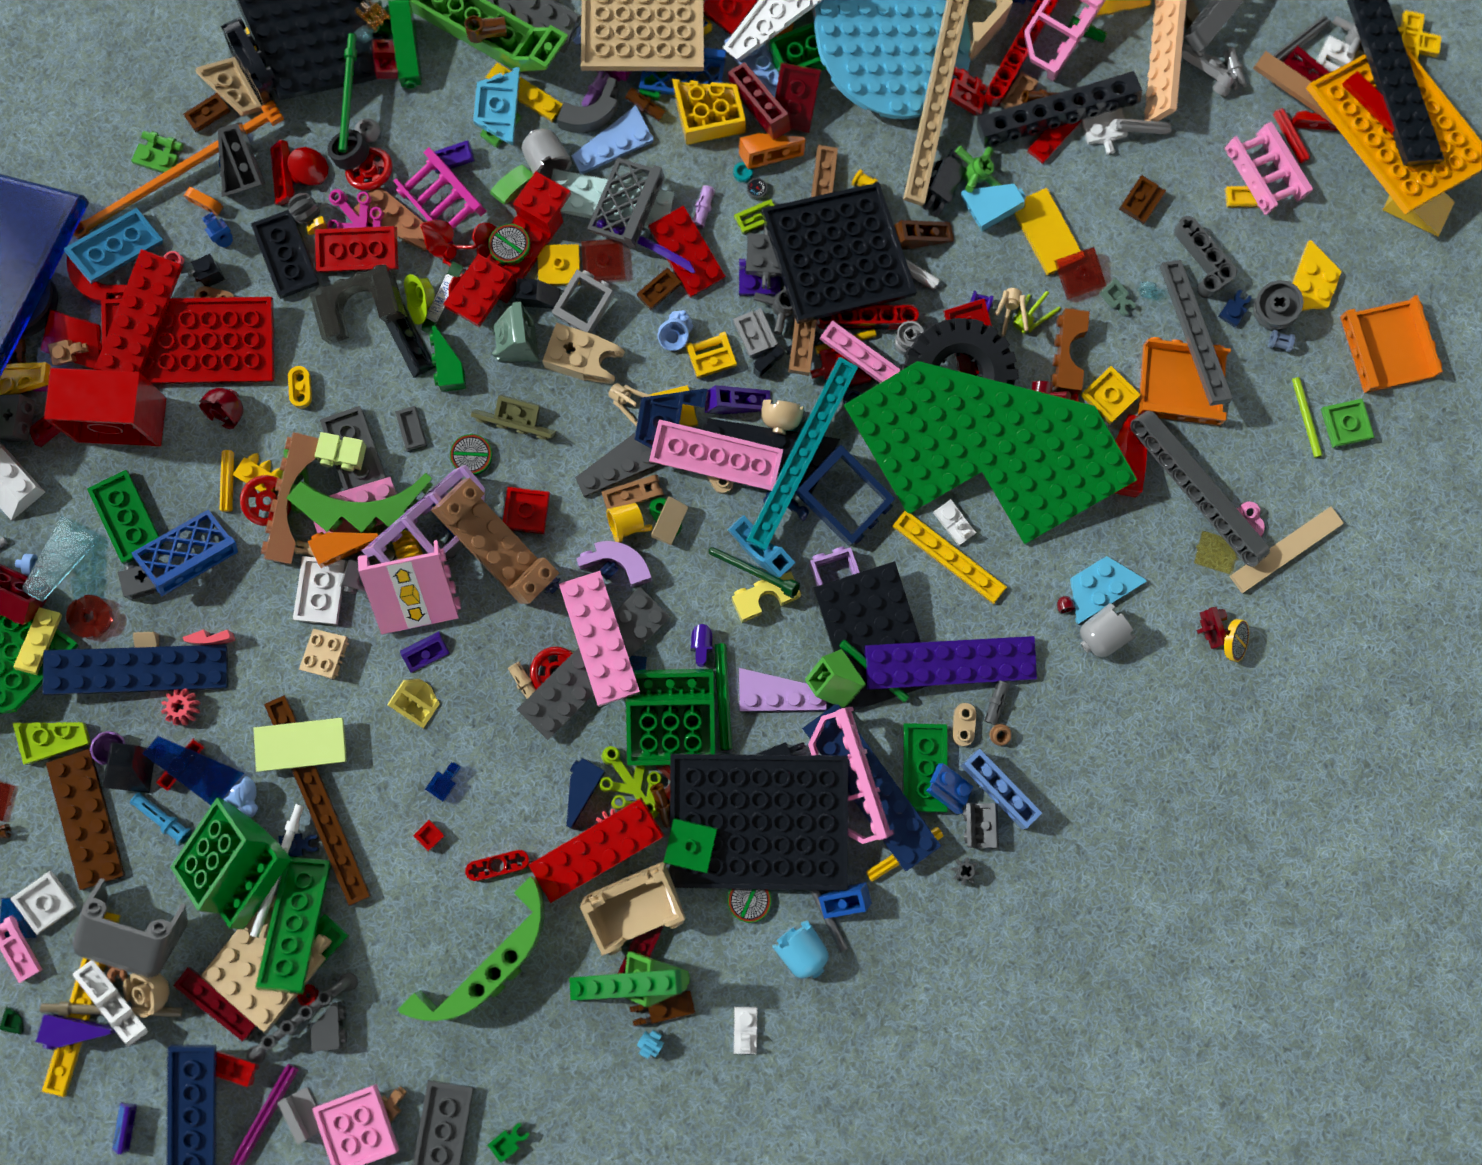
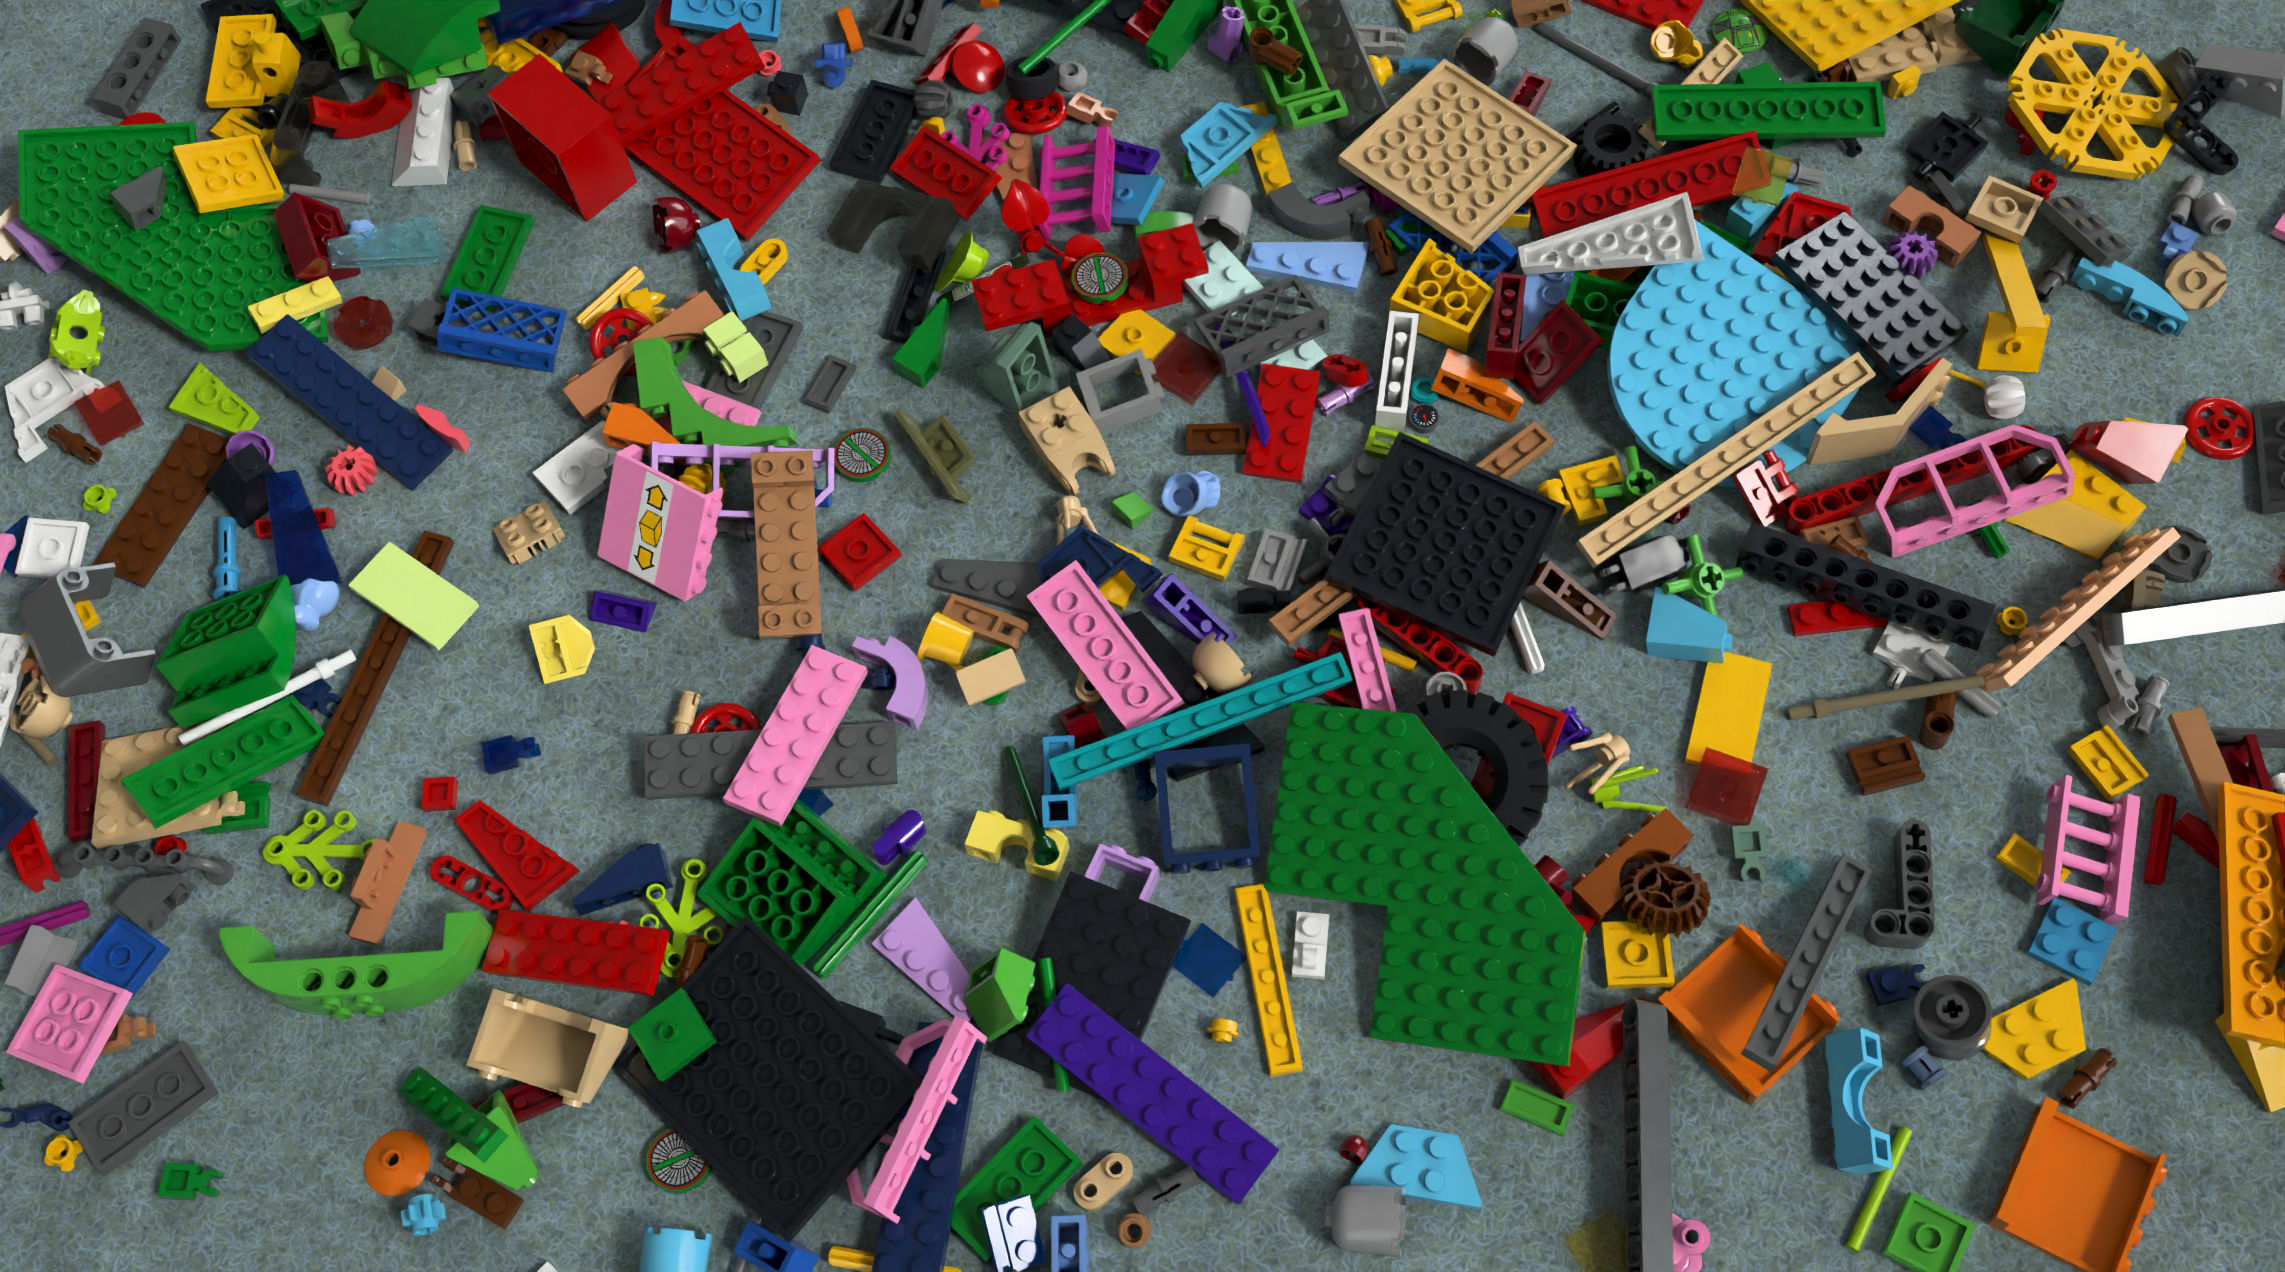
camera: 55 degrees right, 15 degrees down
(32, 851) = (95, 492): none -> lime plate
(33, 459) = (464, 146): none -> tan axle
(311, 413) = (743, 289): none -> medium azure arch
(344, 1070) = (124, 956): none -> blue plate
(393, 923) = (316, 850): none -> lime plant
(400, 145) = (1088, 109): none -> nougat plate
(441, 38) = (1226, 40): none -> medium lavender piece
(448, 905) = (383, 880): none -> nougat bracket
(480, 180) = (1133, 197): none -> dark azure plate
(507, 830) = (515, 855): none -> red wing
(614, 1024) = (407, 1172): none -> orange dish
(650, 365) = (1131, 509): none -> bright green slope
(694, 194) = (1345, 370): none -> red beam
(722, 172) = (1397, 370): none -> white brick
(737, 505) = (1082, 724): none -> dark red slope
(873, 160) = (1579, 483): none -> yellow plate
(898, 149) = (1630, 485): none -> bright green bar
(914, 571) = (1208, 960): none -> clear blue piece
(953, 601) = (1223, 1030): none -> yellow plate
(1089, 192) = (1822, 708): none -> dark tan bar
(1100, 348) = (1665, 898): none -> reddish brown gear
(1128, 510) = (1536, 1107): none -> bright green tile
(1139, 67) = (2015, 614): none -> yellow plate
(1146, 151) = (1937, 715): none -> reddish brown piece
(1239, 114) = (2107, 763): none -> yellow plate
(1249, 366) = (1852, 1060): none -> medium azure arch
(1293, 222) = (2071, 941): none -> dark azure plate
(1352, 285) = (2087, 1078): none -> reddish brown pin

